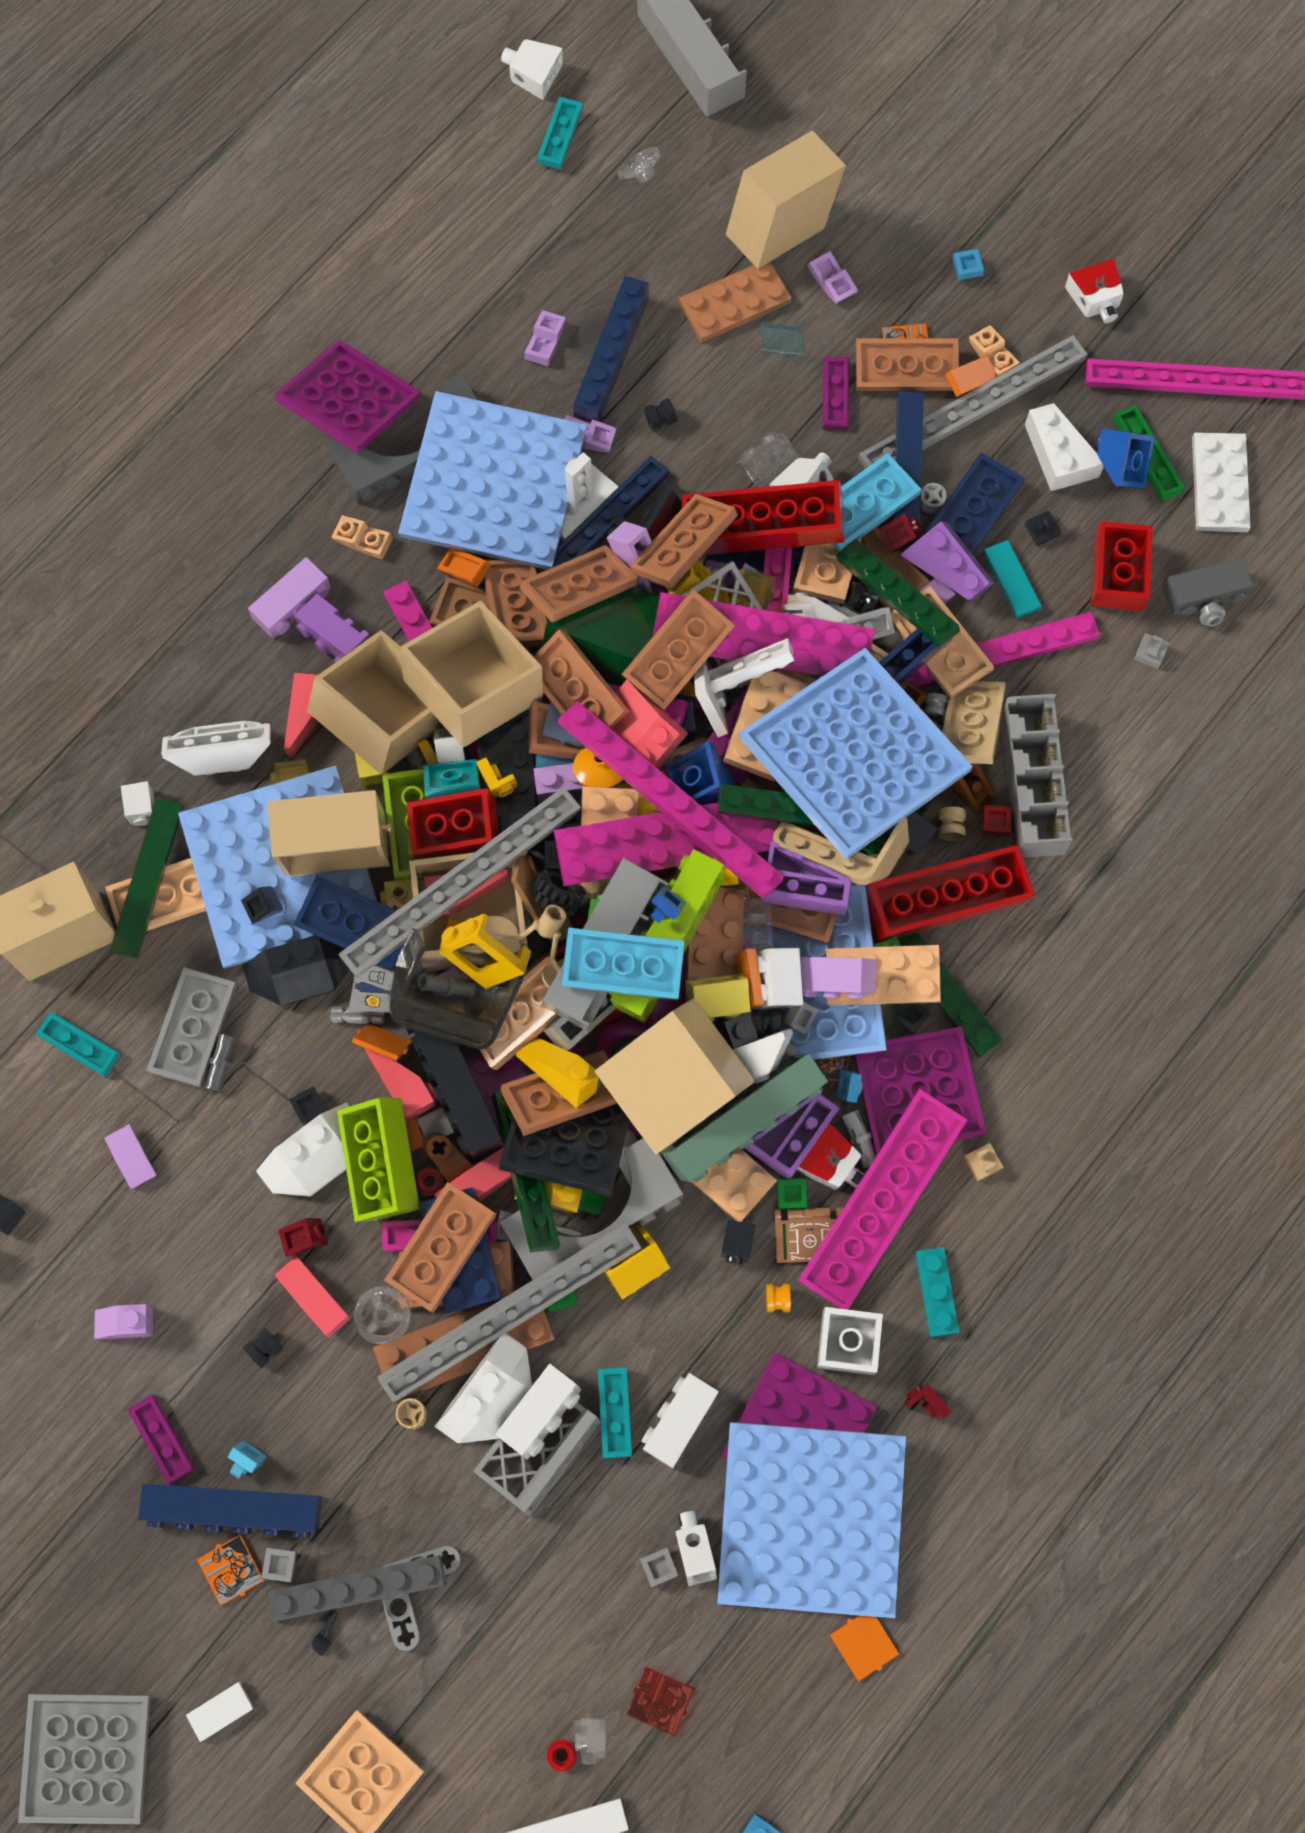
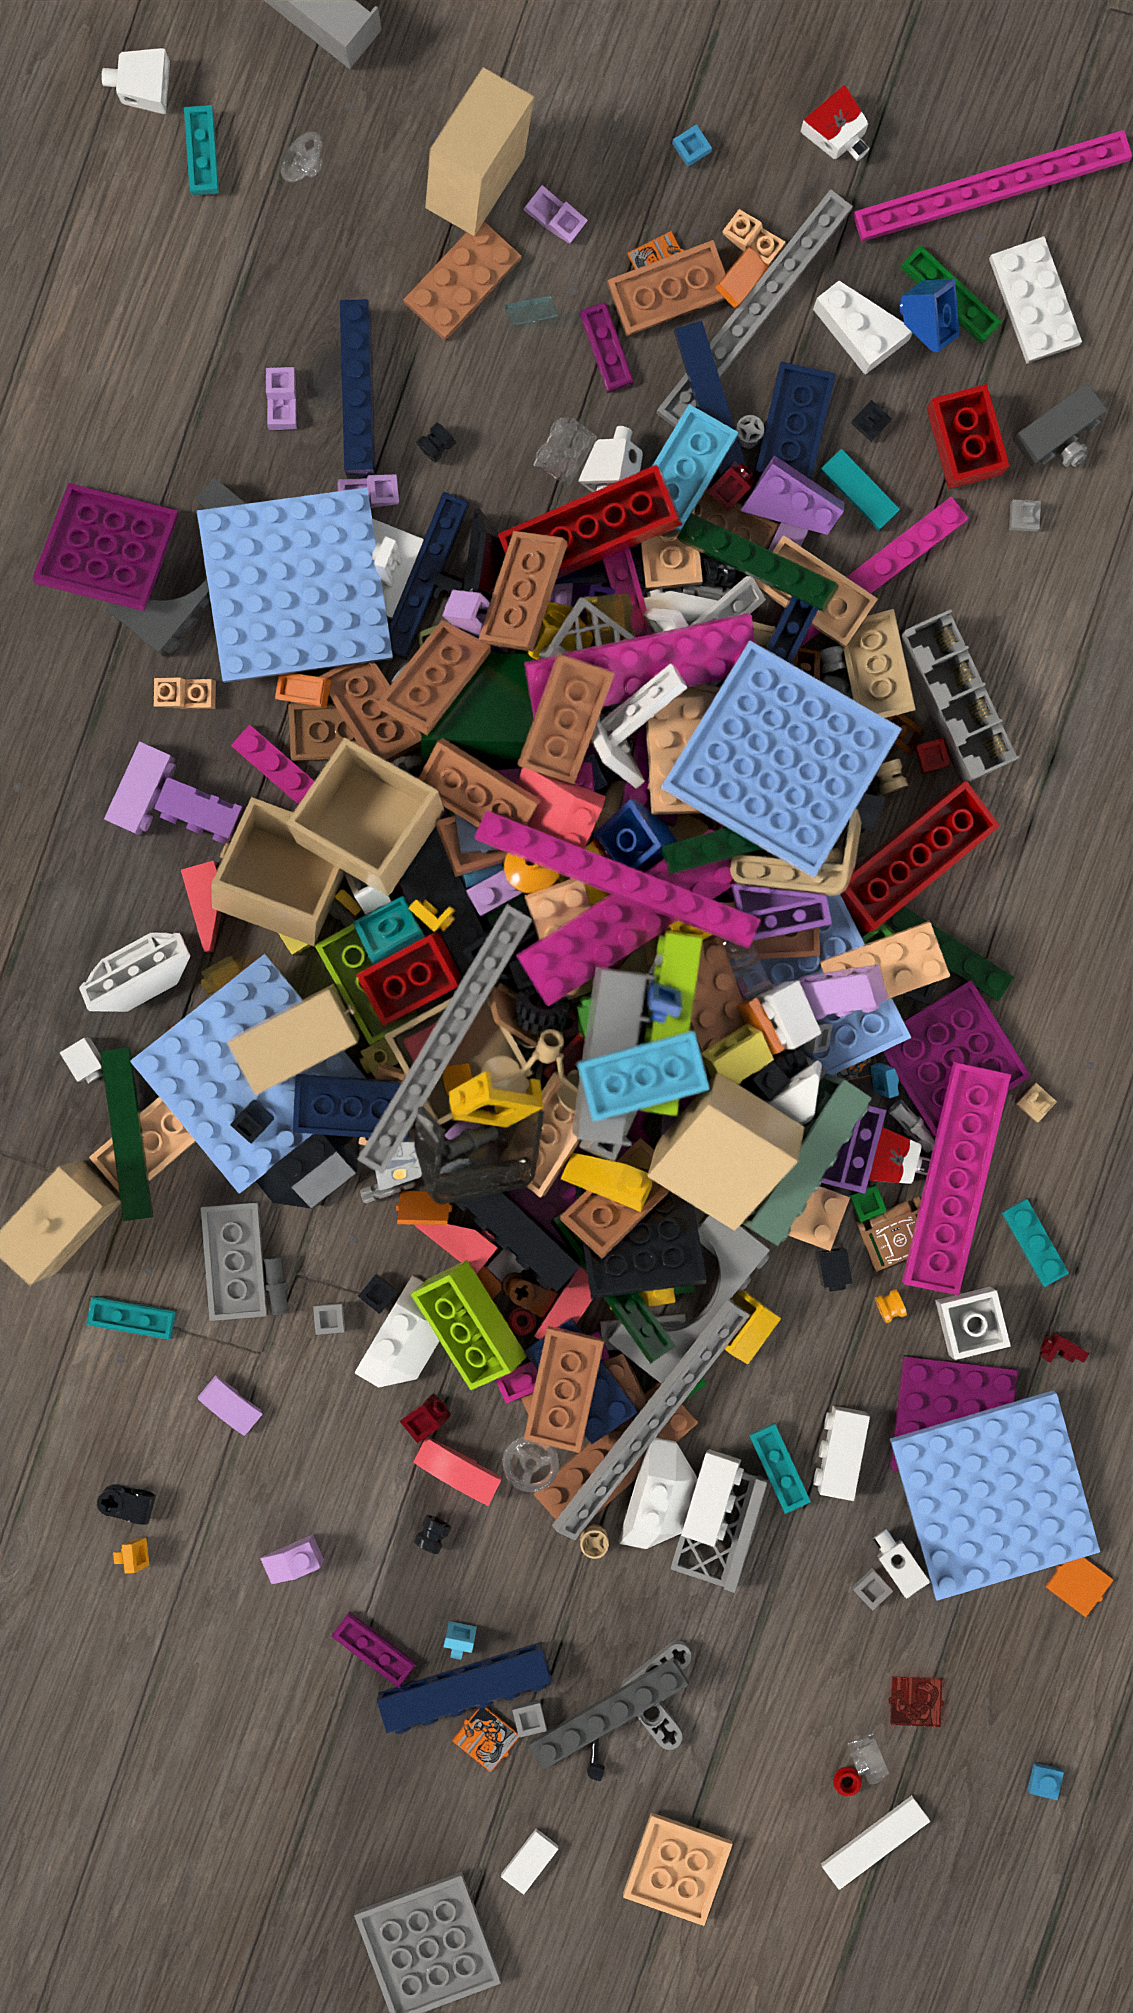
camera: 25 degrees left, 15 degrees up
(254, 1111) = (329, 1318): none -> light grey plate

